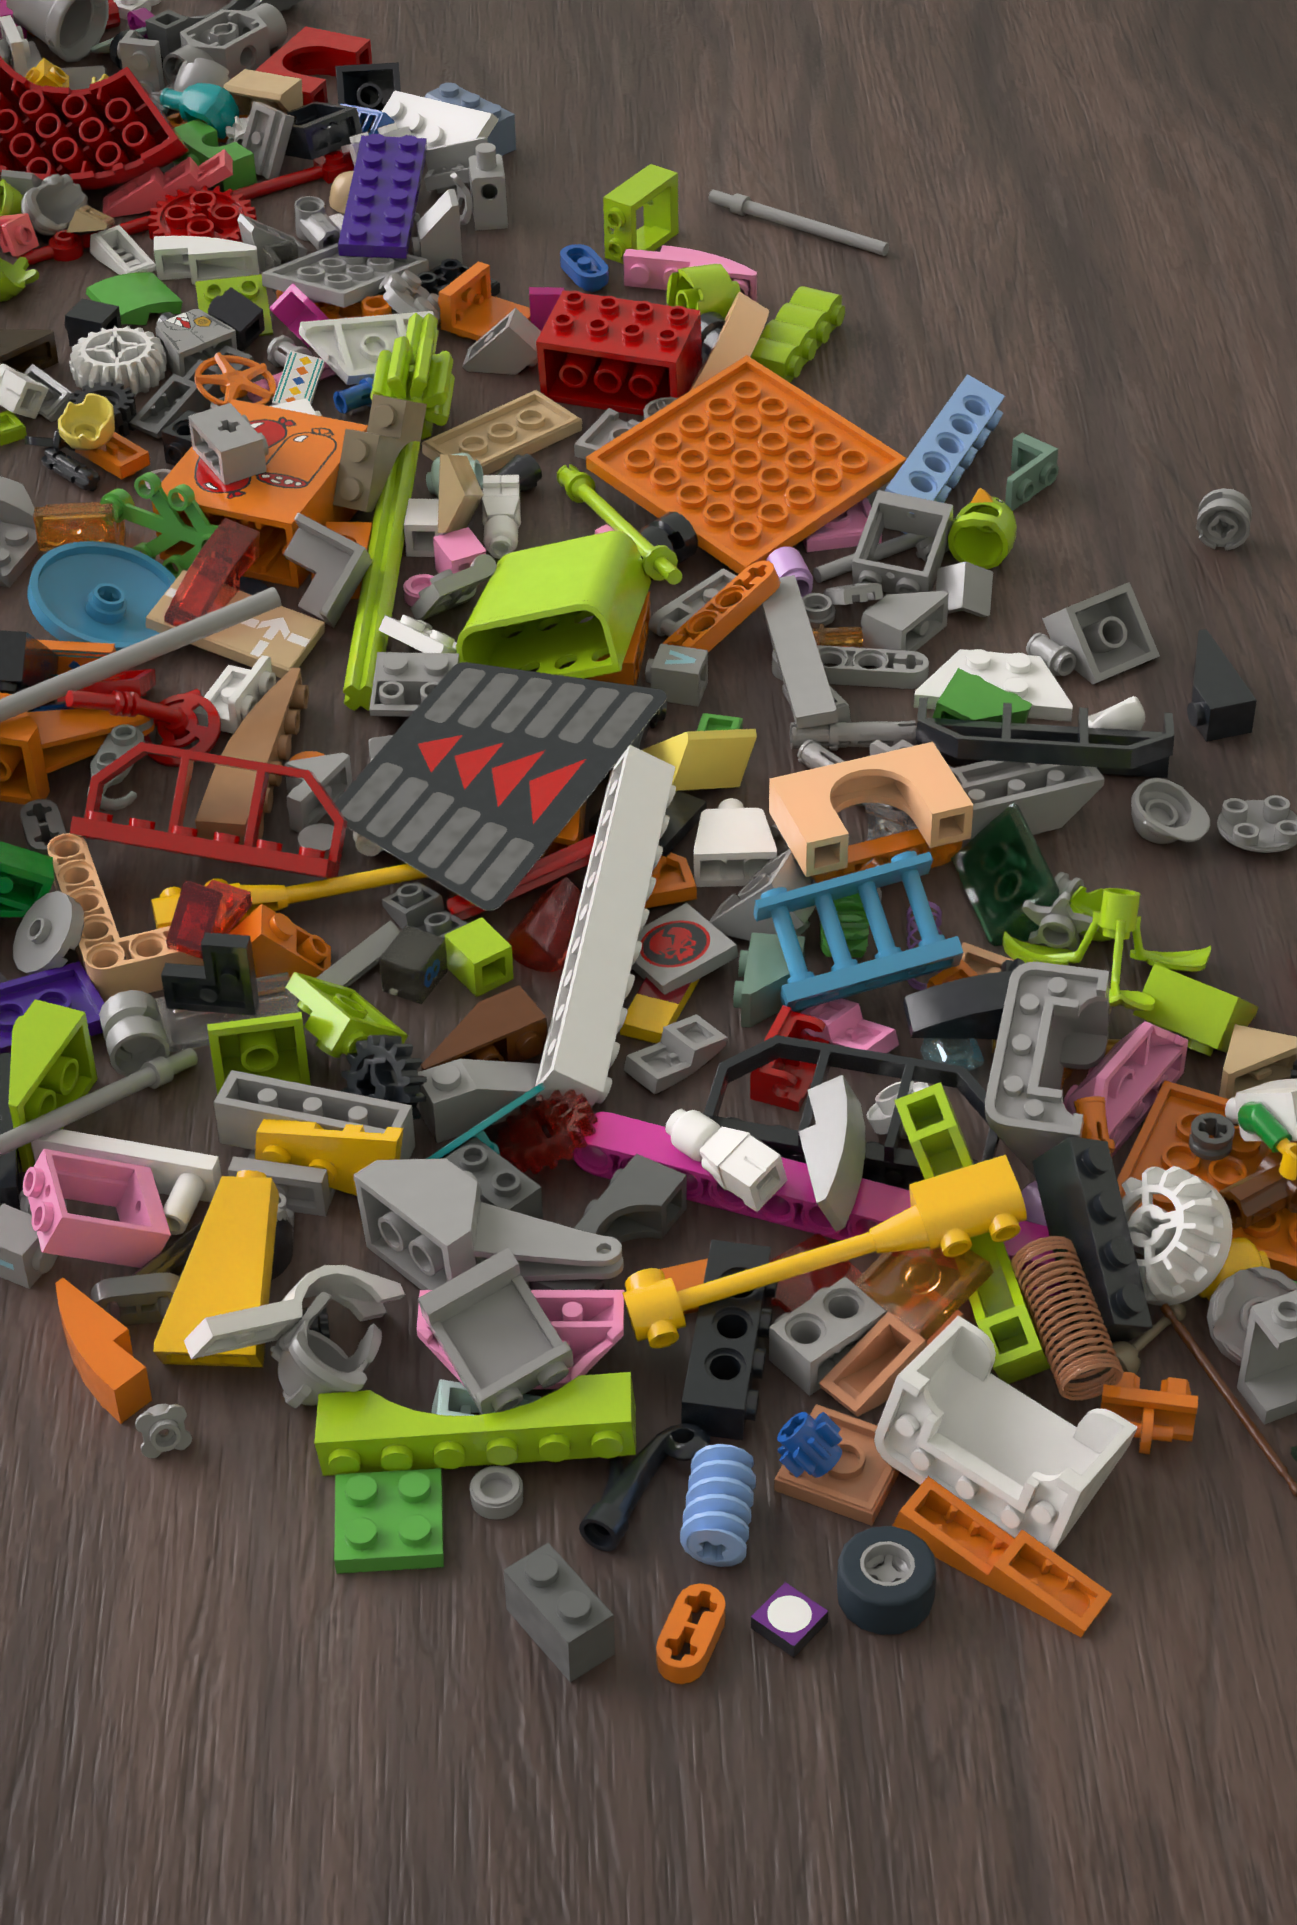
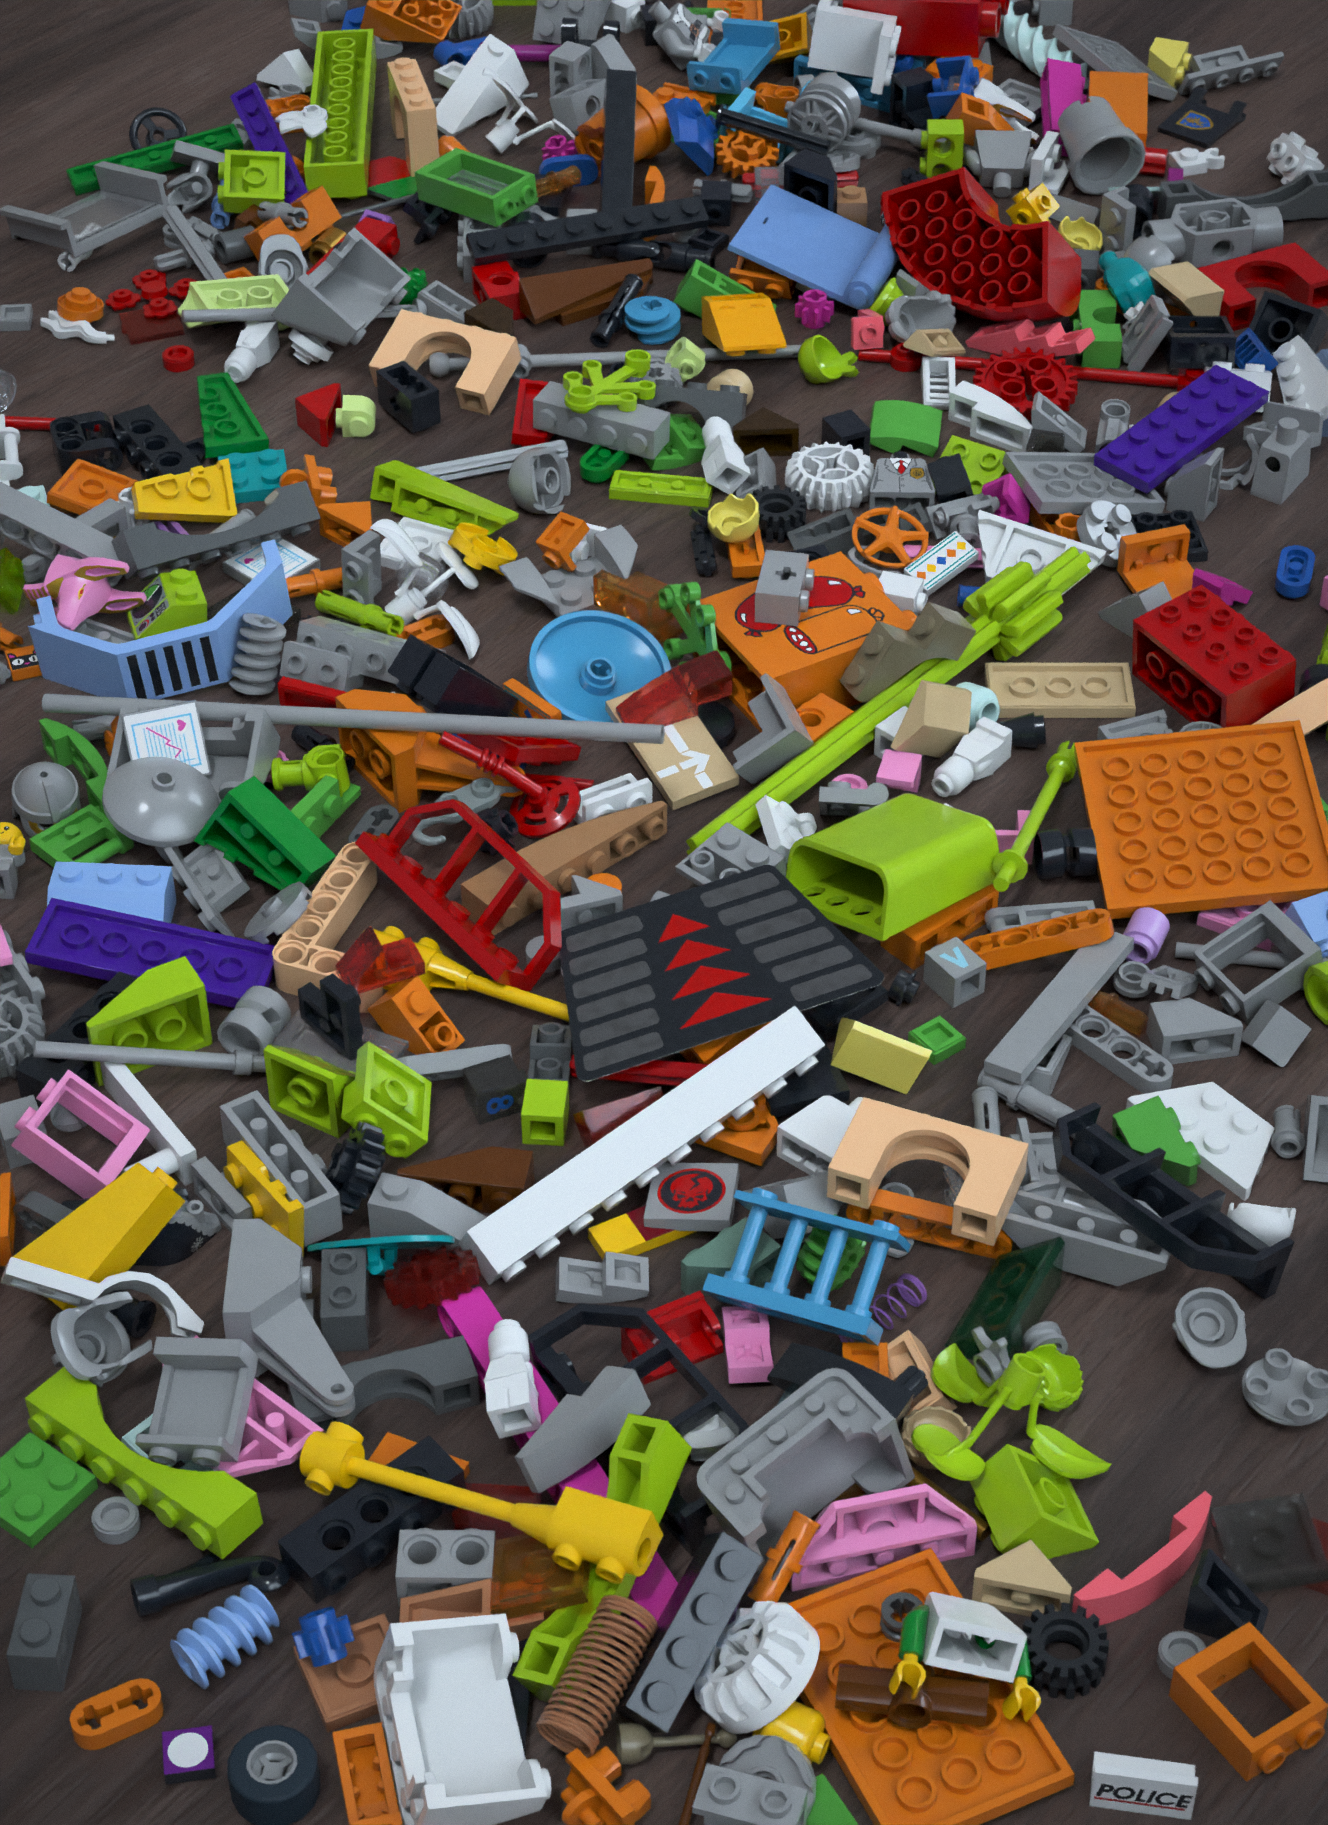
camera: 40 degrees right, 0 degrees up
(159, 772) = (502, 823): none -> black gear
(258, 341) = (943, 513): none -> light grey hinge

